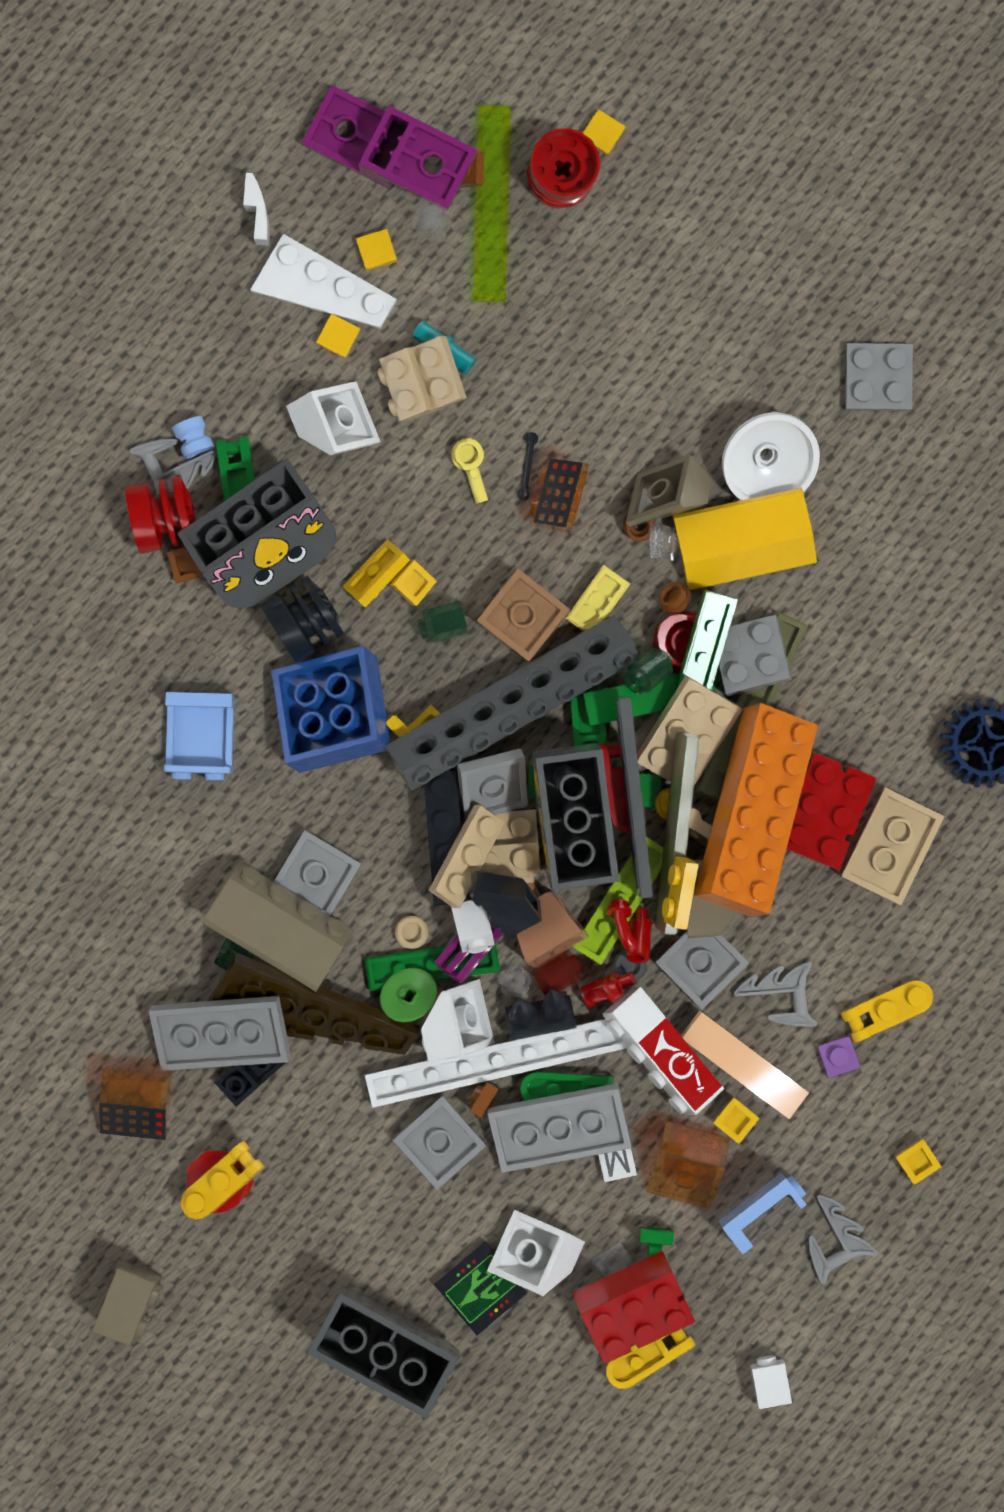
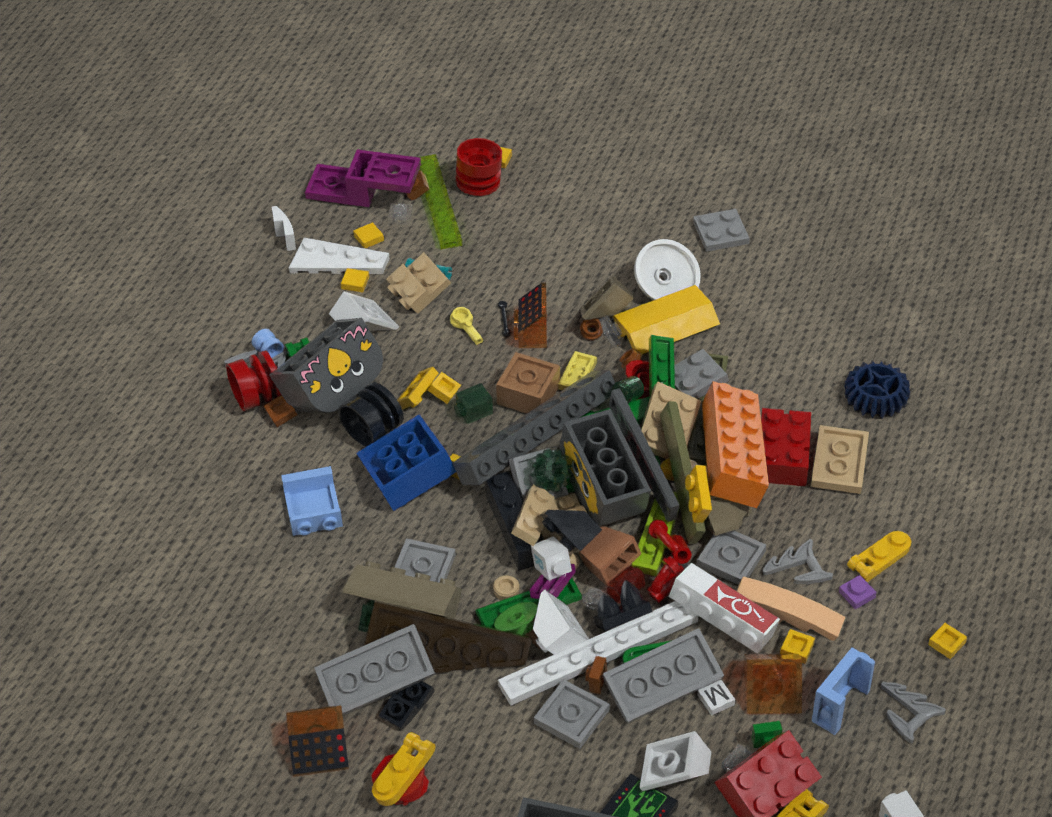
camera: 20 degrees left, 40 degrees down
(508, 793) = (551, 470): none -> clear green gear

